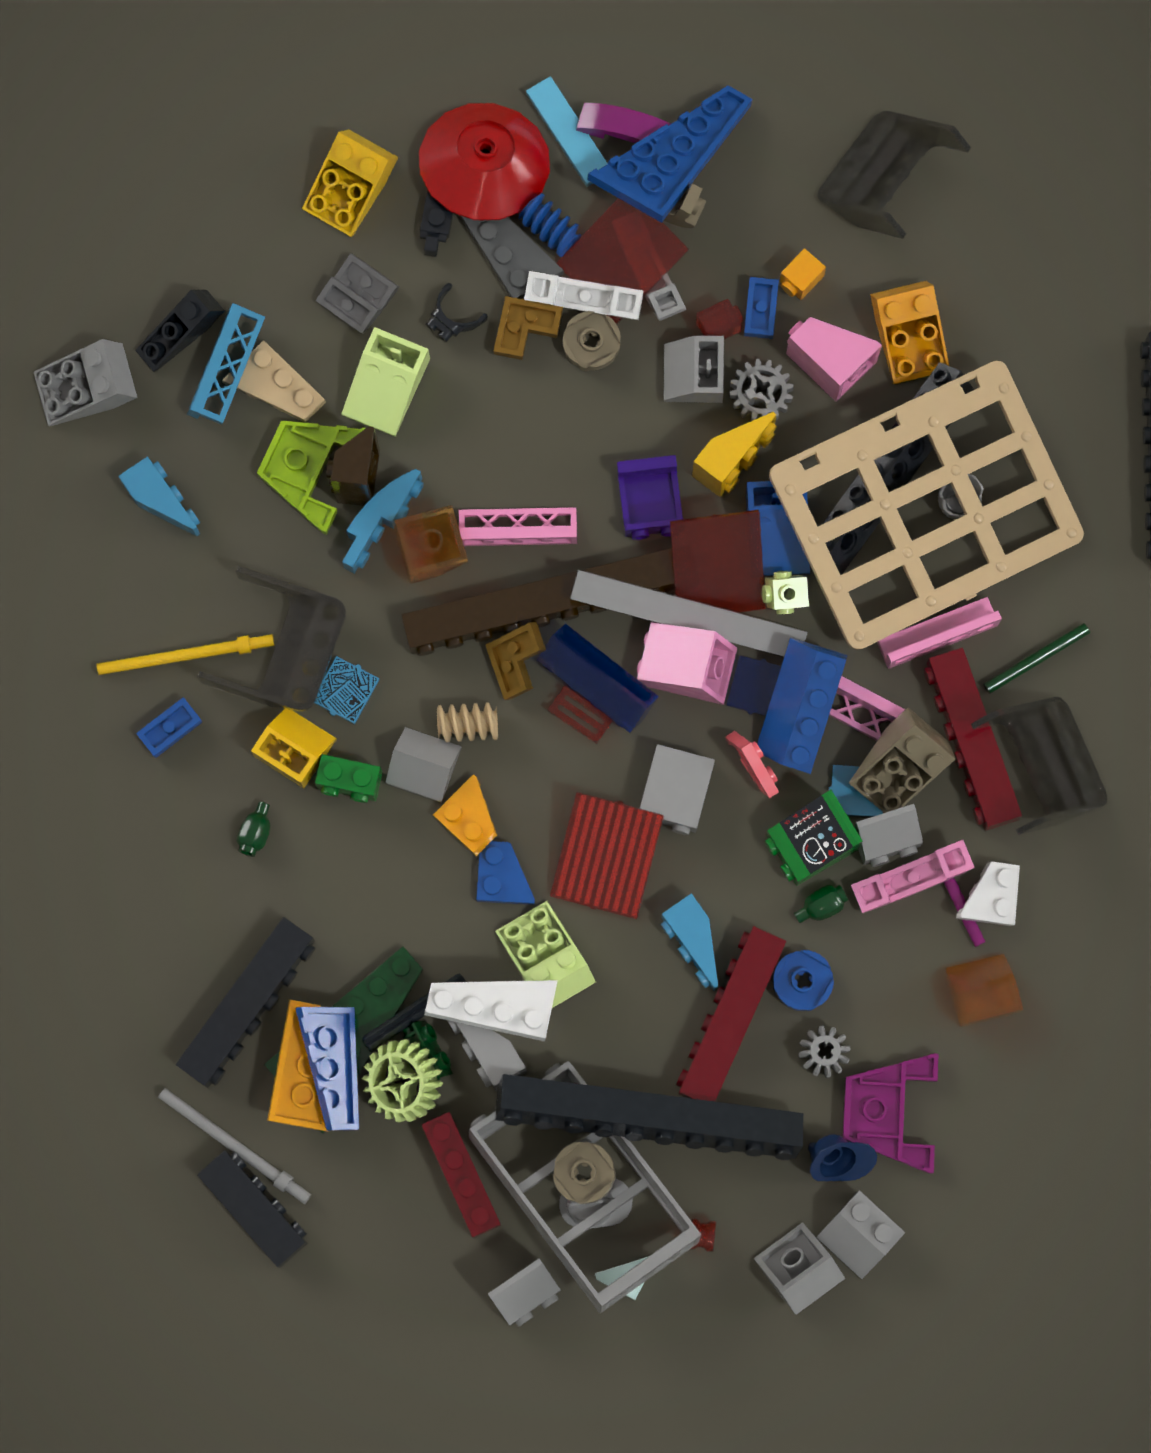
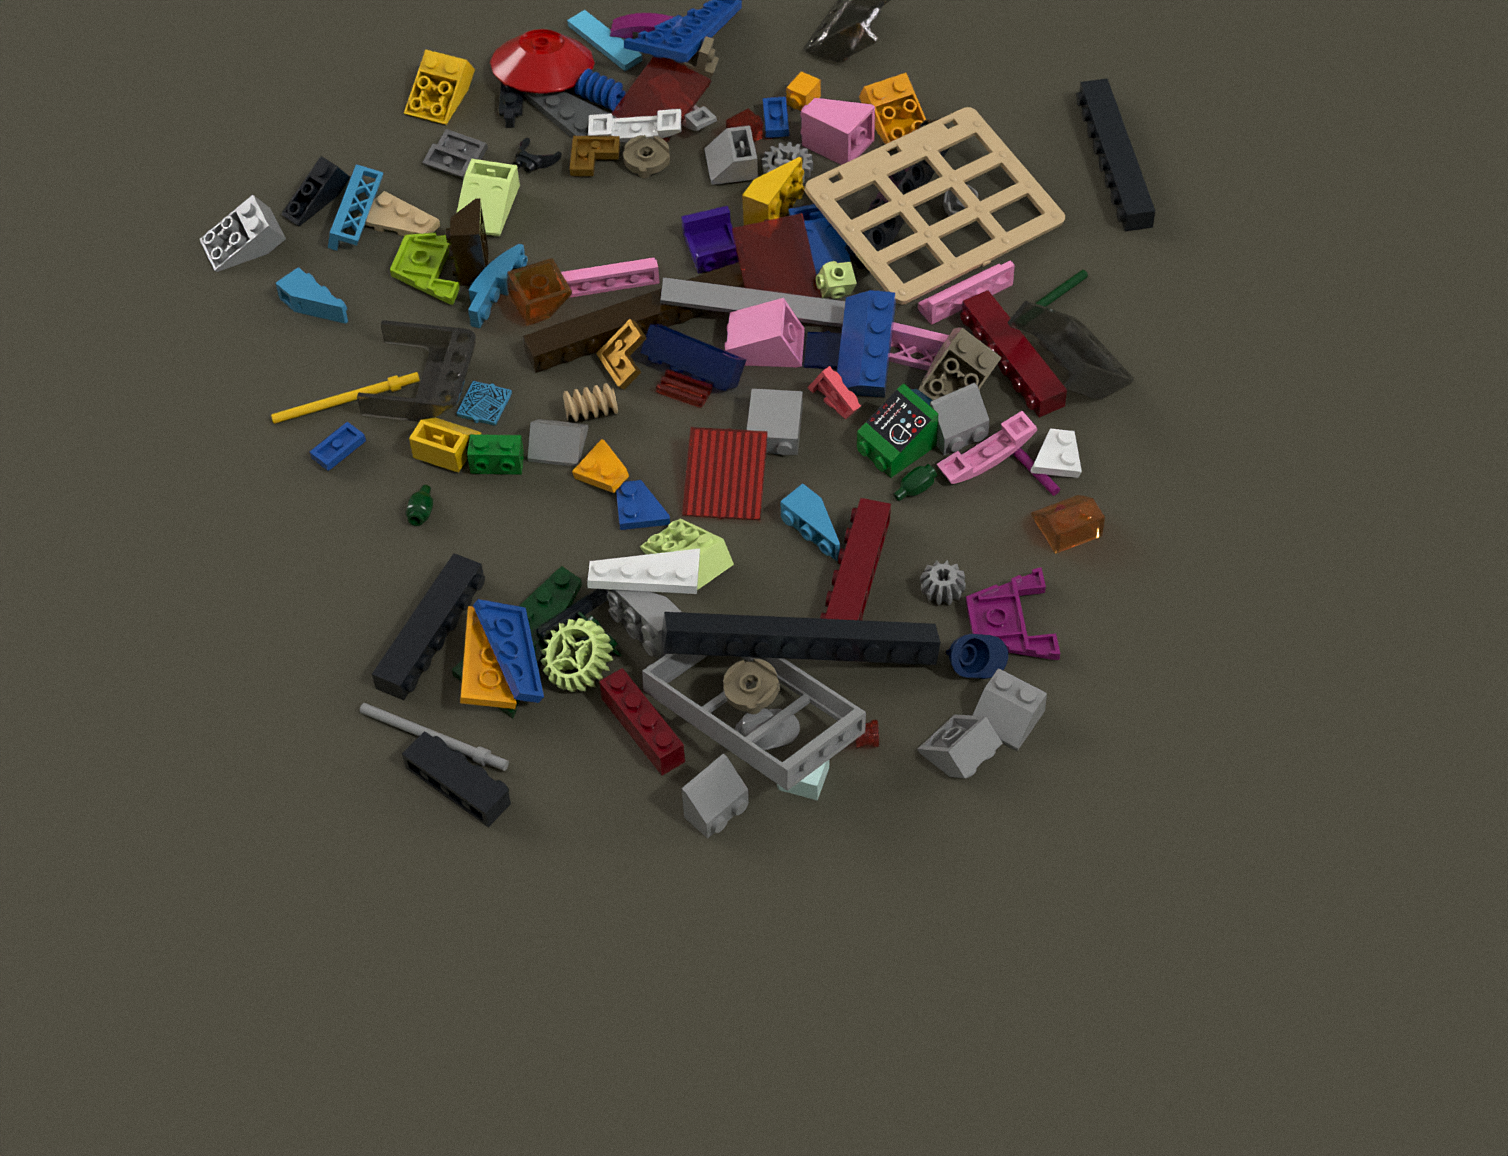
camera: 10 degrees left, 25 degrees down
(797, 964) = (912, 550): blue plate -> none

